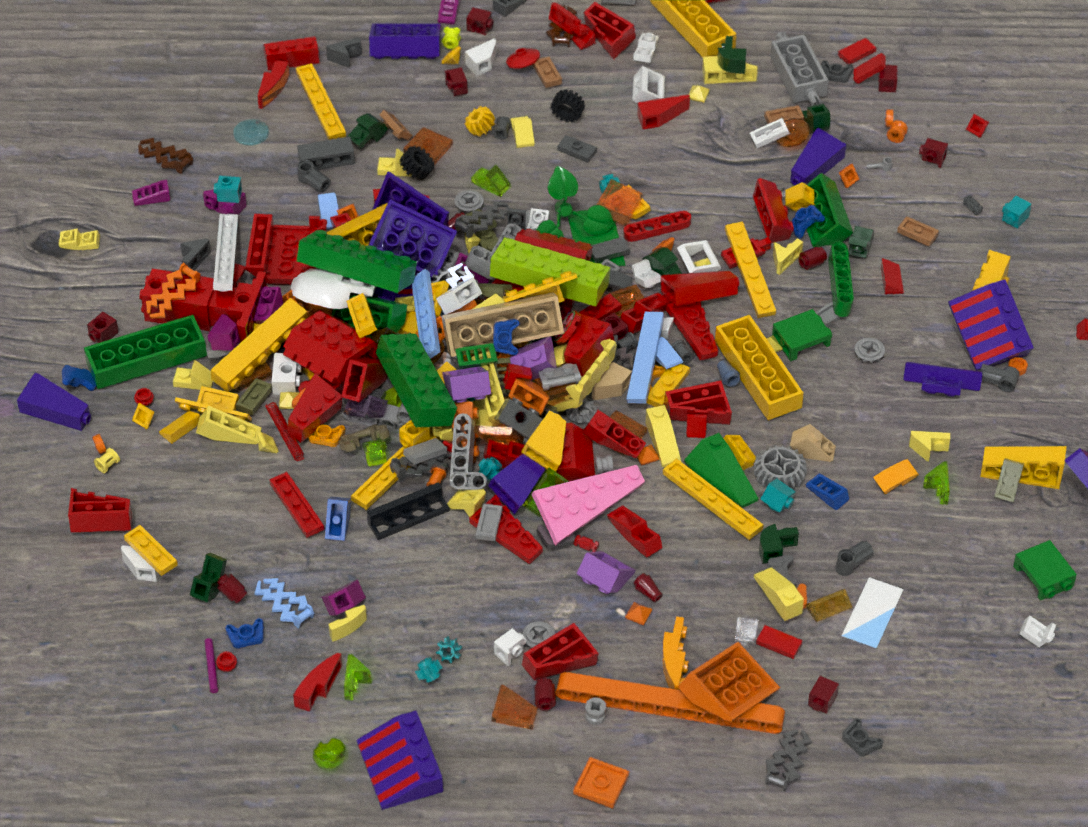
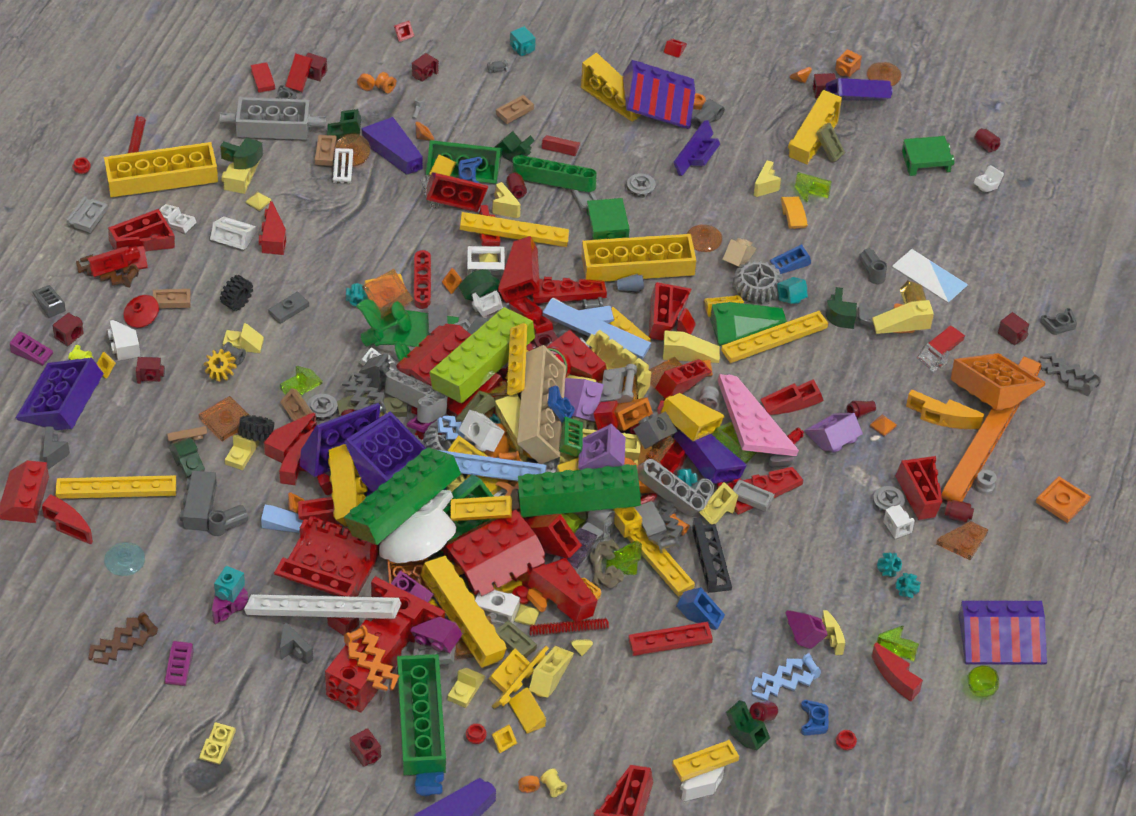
camera: 75 degrees left, 0 degrees up
(211, 665) = (845, 754): magenta bar -> none
(426, 187) = (285, 437): none -> red slope
(460, 182) = (295, 405): none -> medium nougat plate
(825, 417) = (705, 238): none -> clear orange dish

